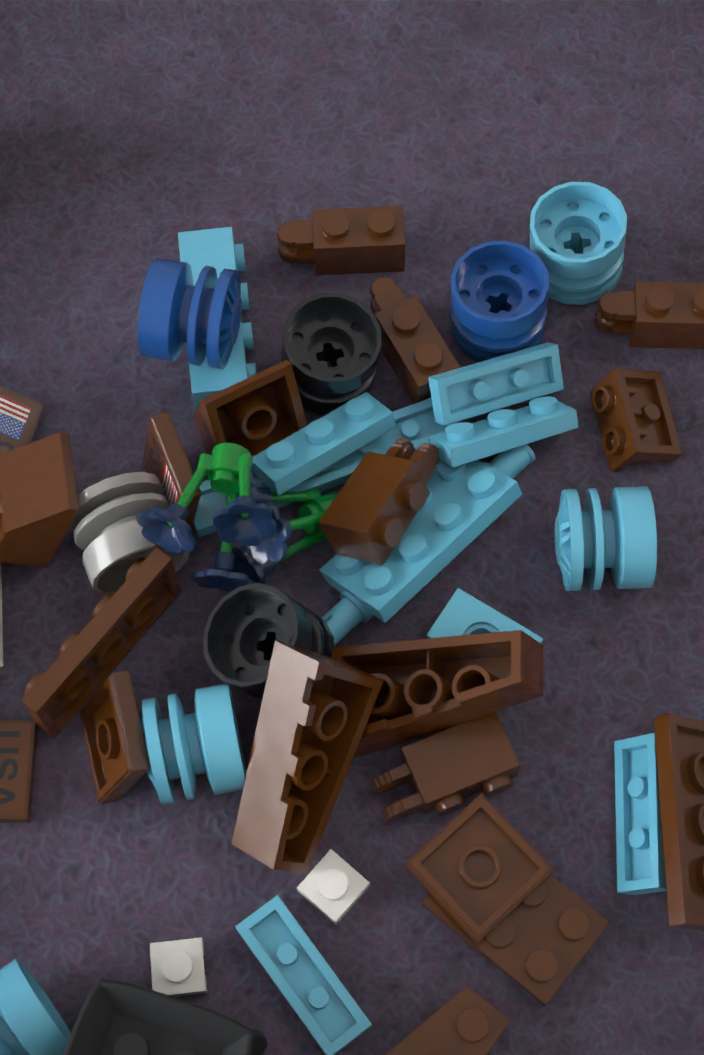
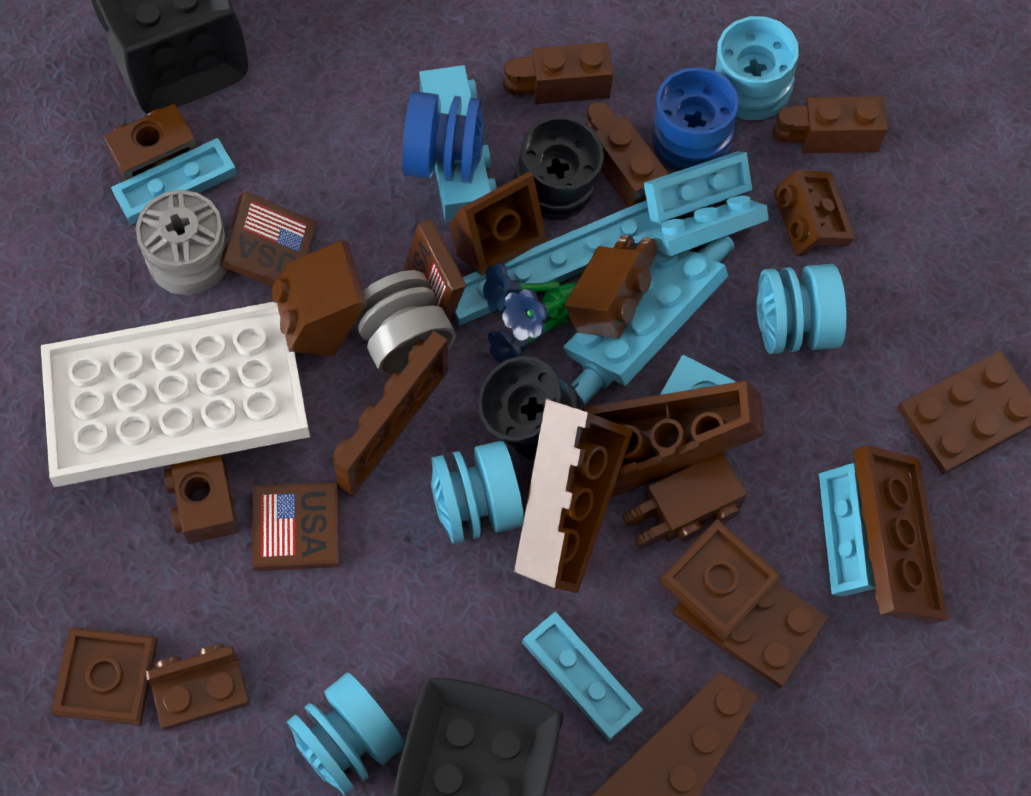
camera: 10 degrees left, 0 degrees up
(114, 738) = (408, 491): reddish brown tile -> none
(178, 967) = (478, 668): white plate -> none
(240, 521) = (508, 305): dark blue plant -> none
(322, 443) = (559, 241): medium azure plate -> none
(333, 886) = (599, 603): white plate -> none

